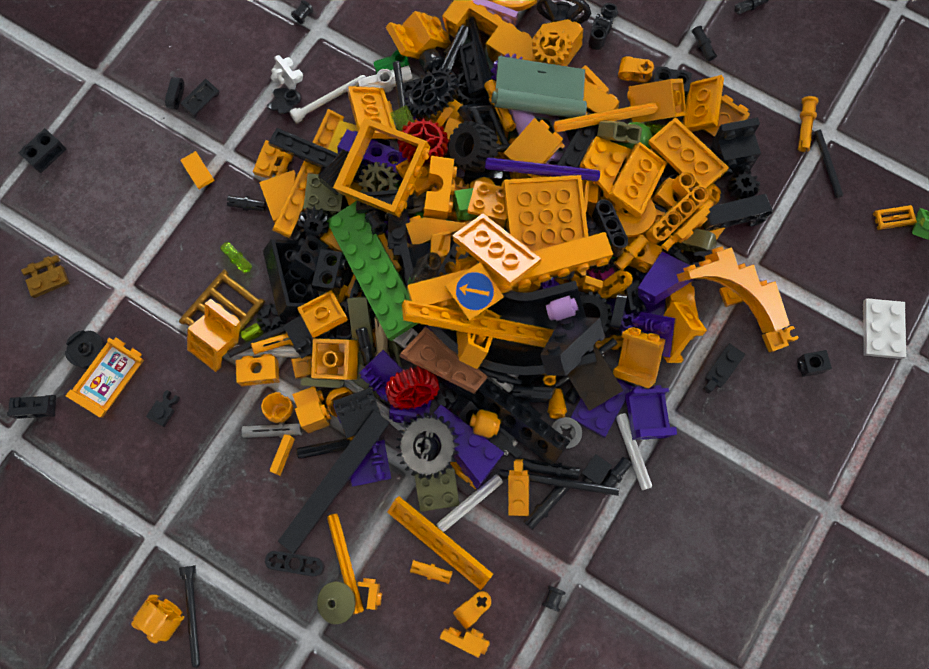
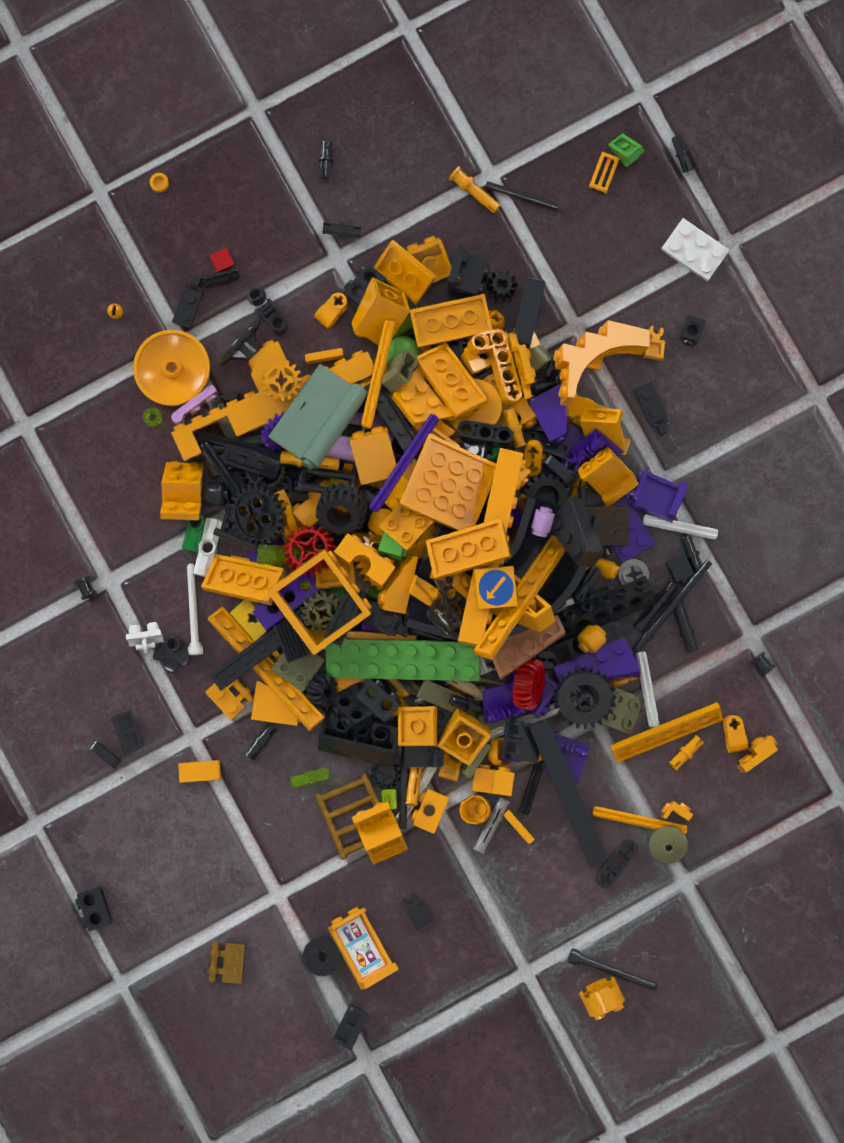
camera: 65 degrees left, 10 degrees up
(377, 225) = (361, 634): black bush -> none
(518, 490) = (660, 642): light orange hinge -> none

